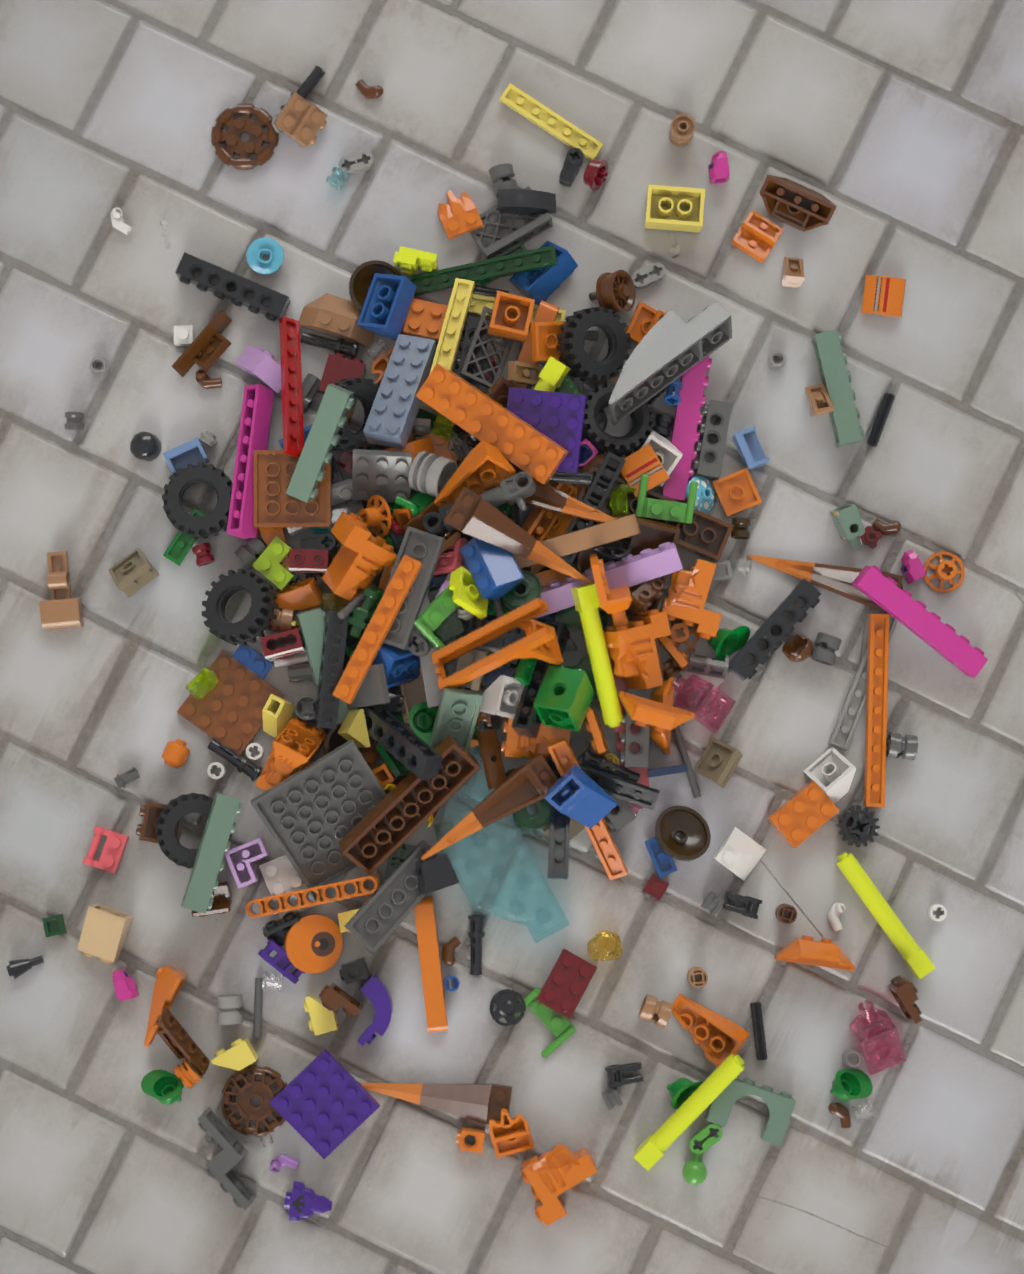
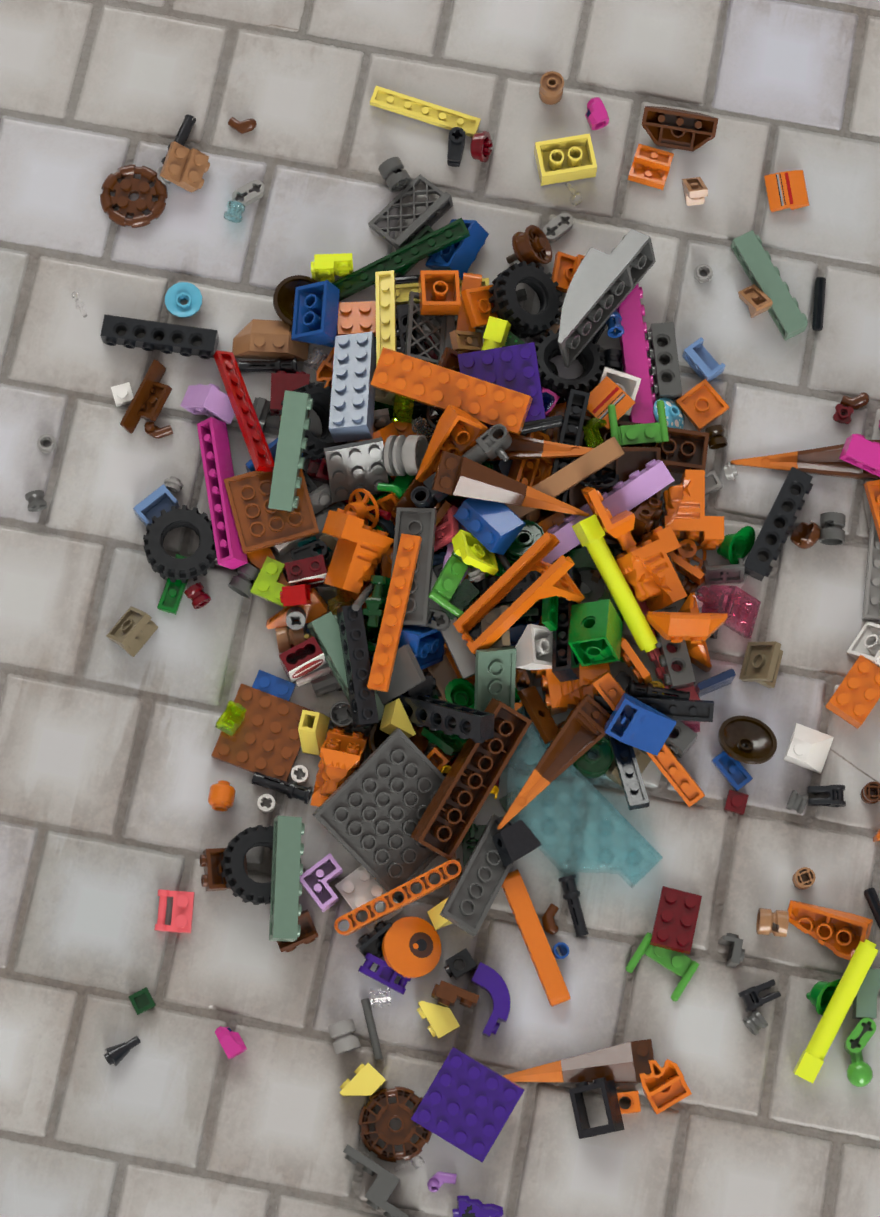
camera: 15 degrees left, 10 degrees down
(62, 609) = (69, 686): medium nougat plate -> none
(104, 933) = (196, 993): tan slope -> none
(118, 222) = (30, 304): white arm -> none
(127, 777) = (178, 833): dark grey pin -> none
(145, 446) = (112, 508): black hair -> none
(162, 1086) = (298, 1133): green piece -> none
(165, 992) = (274, 1034): orange wedge -> none
(180, 1042) = (302, 1082): reddish brown bracket -> none
(187, 1073) = (319, 1112): orange wheel -> none
(259, 613) = (266, 646): black tyre -> none
(287, 599) = (298, 614): none -> dark grey wheel
(291, 584) = (295, 595): none -> red brick
(455, 1140) = (611, 1104): none -> black window
(458, 215) = (360, 217): orange plate -> none
(507, 1007) = (624, 960): black wheel -> none
(526, 201) = (422, 187): black slope -> none
(553, 1175) = (718, 1113): orange brick -> none
(605, 946) = (703, 872): clear yellow hair -> none
(611, 1032) = (735, 952): none -> dark grey bracket
(685, 759) = (725, 666): dark grey bar -> none
(844, 518) = (818, 405): sand green torso -> none

